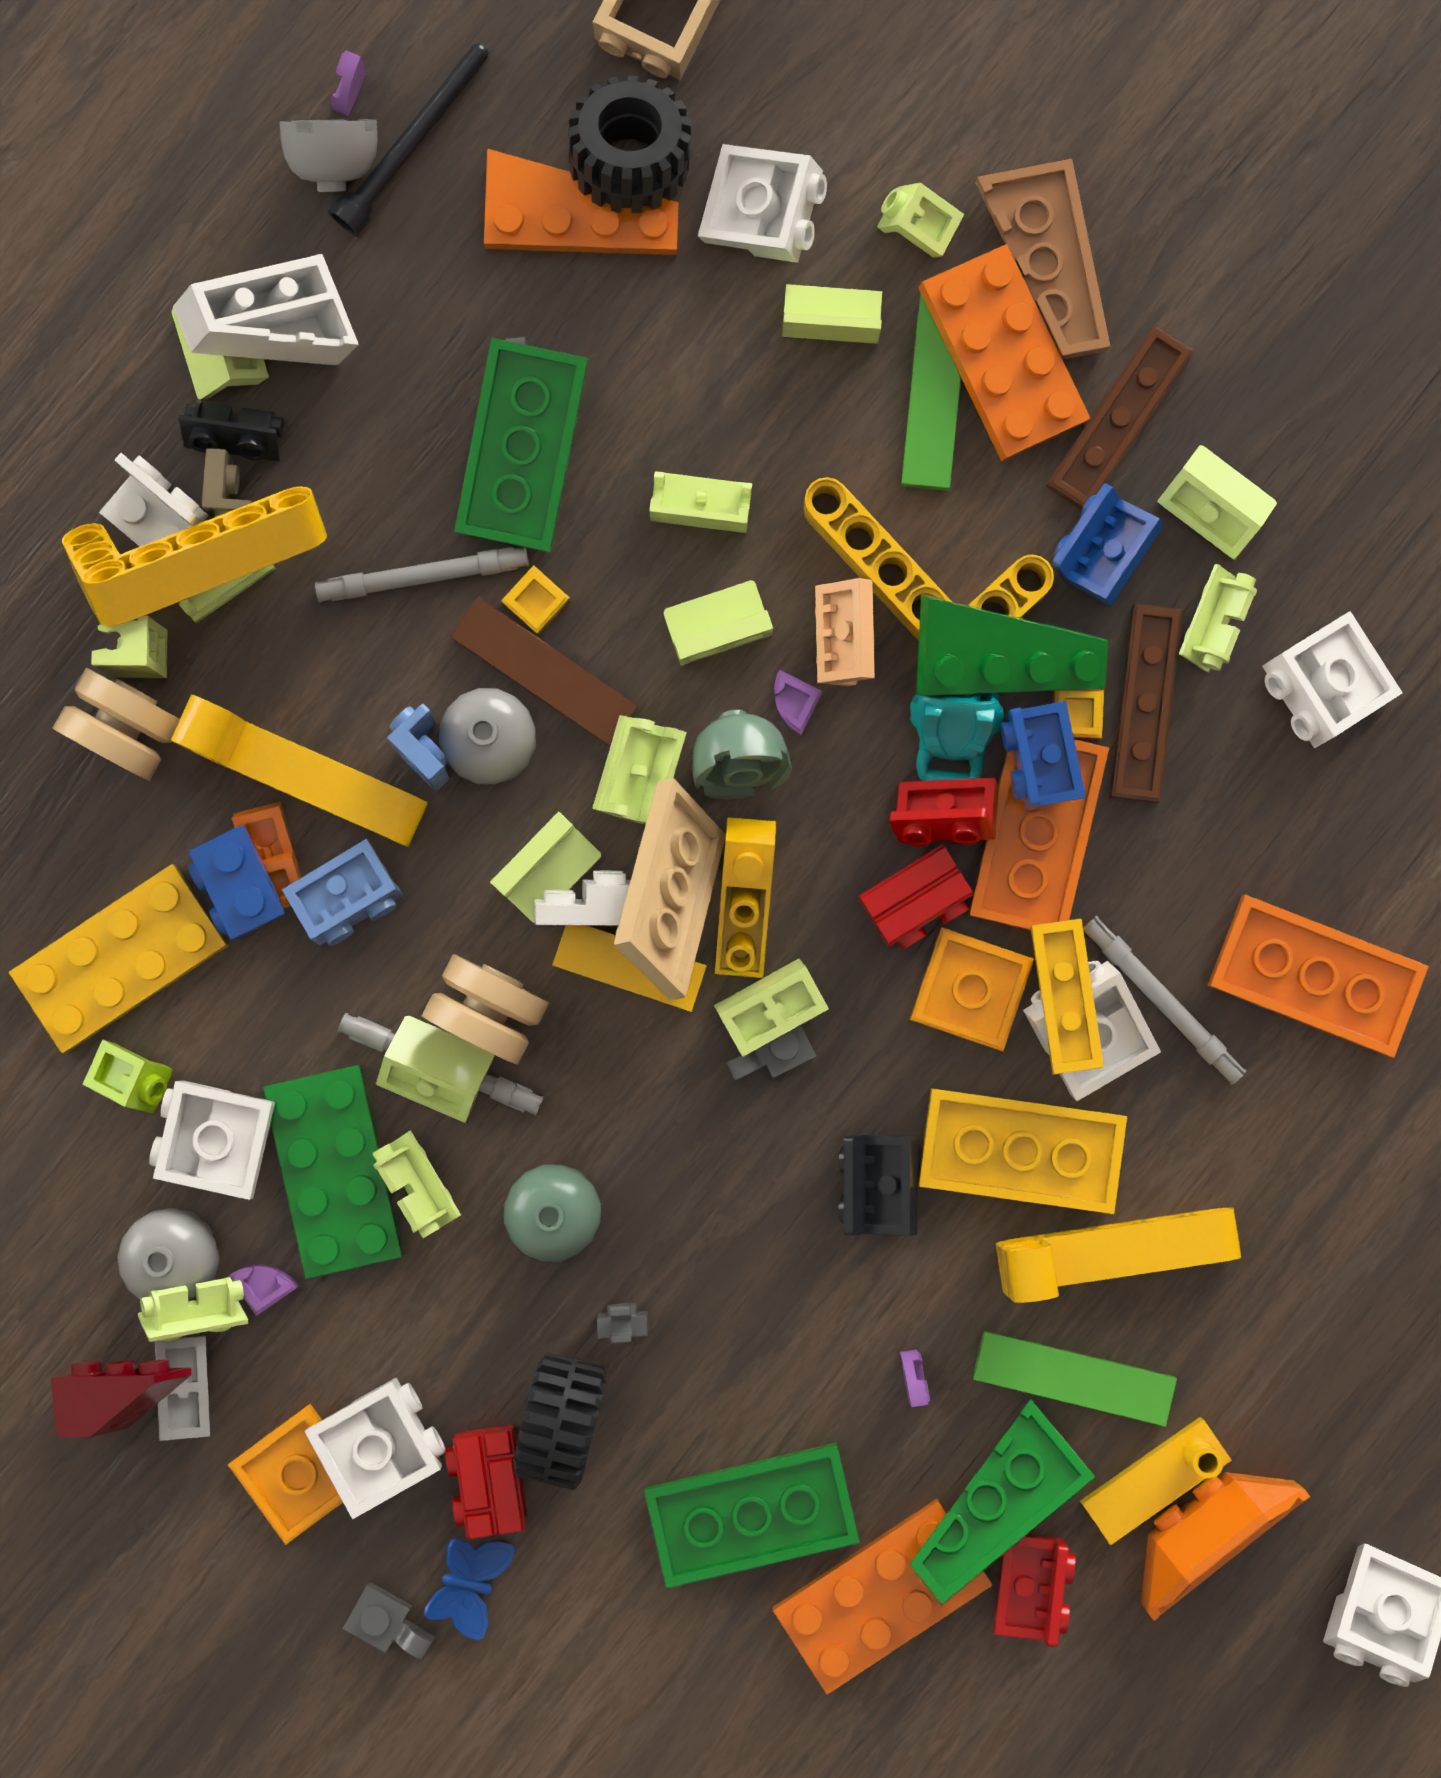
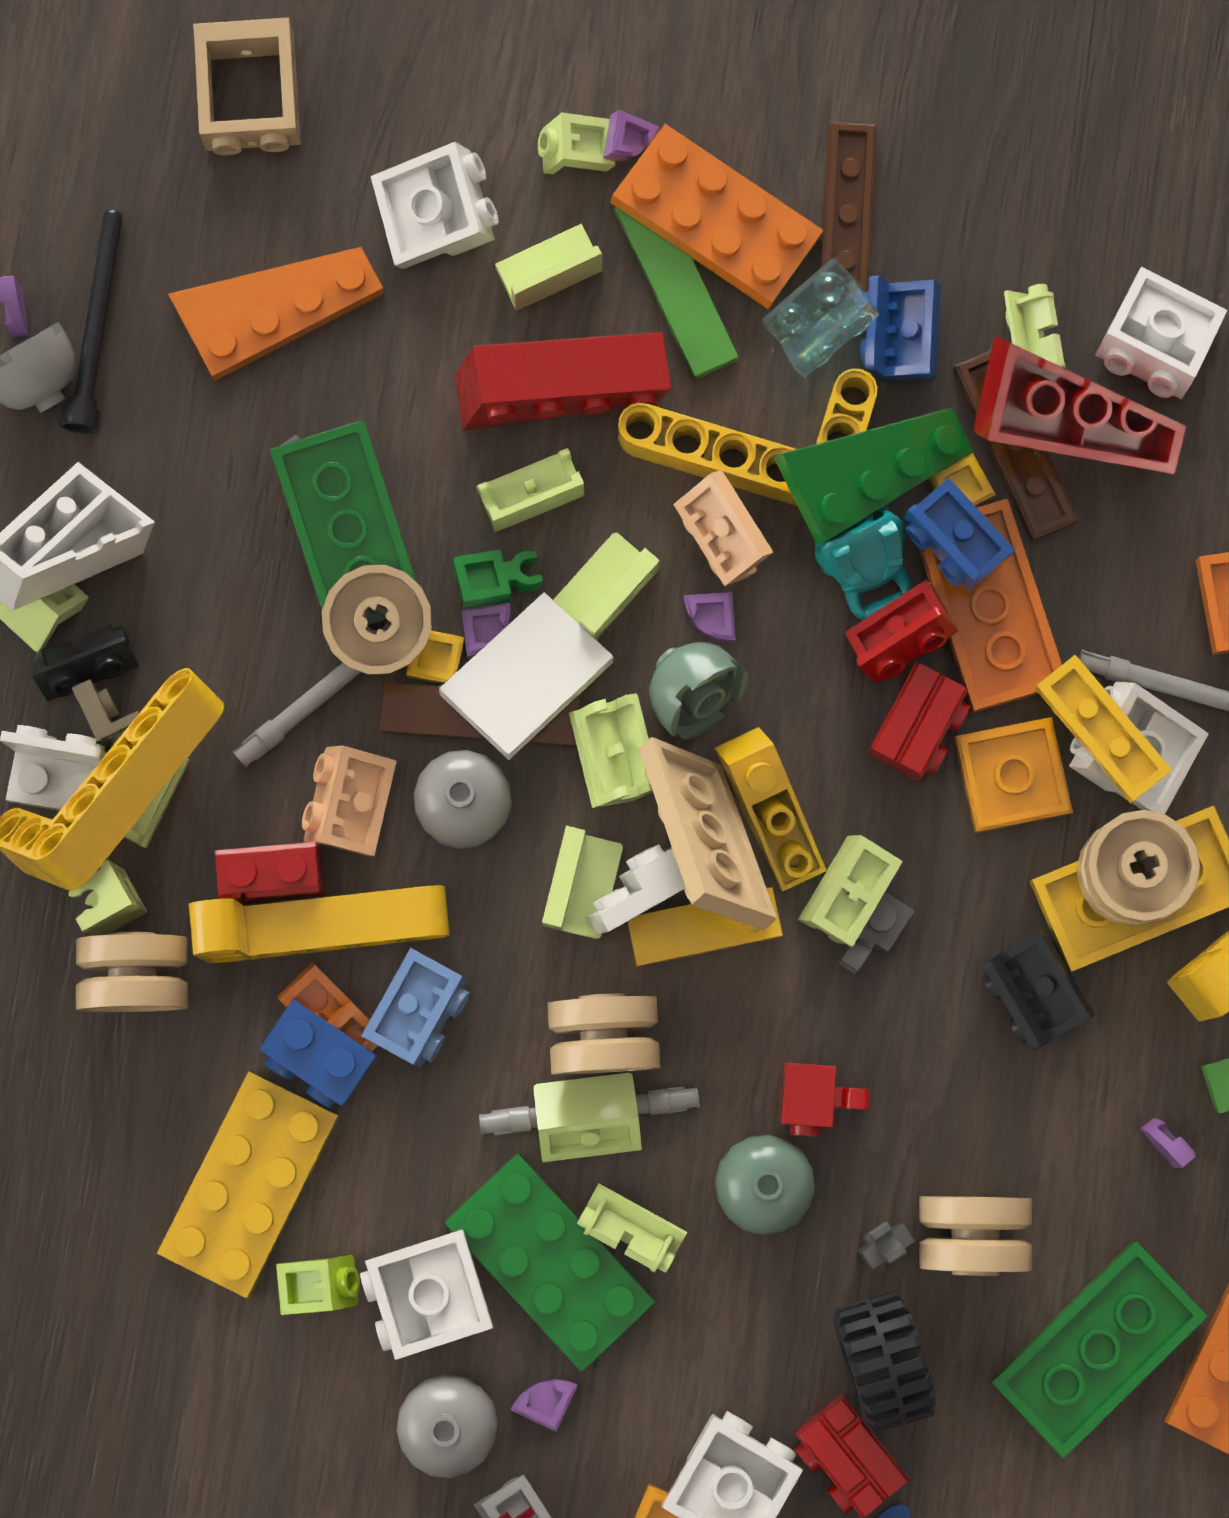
camera: 30 degrees left, 5 degrees down
(170, 1315) = (483, 1473): yellowish green hinge -> none
(285, 705) = (270, 872): none -> red brick
(388, 680) = (348, 799): none -> light nougat bracket
(416, 748) = (416, 847): medium blue bracket -> none
(468, 545) = (380, 590): none -> tan wheel
(592, 599) = (483, 625): none -> medium lavender tile
(602, 661) = (526, 675): none -> white tile
(617, 559) = (487, 579): none -> green plate
(629, 112) = (287, 189): black tyre -> none
(633, 1162) = (811, 1096): none -> red brick
(698, 1366) = (975, 1235): none -> tan wheel
(783, 419) = (560, 378): none -> red wedge
(967, 236) = (627, 136): none -> medium lavender tile
(1040, 495) = (820, 317): none -> clear light blue bracket
(1047, 234) = (690, 93): medium nougat wing -> none
(1054, 1139) = (1167, 862): none -> tan wheel
(1199, 700) = (1060, 412): none -> red wedge
(1217, 502) = (973, 240): yellowish green panel -> none

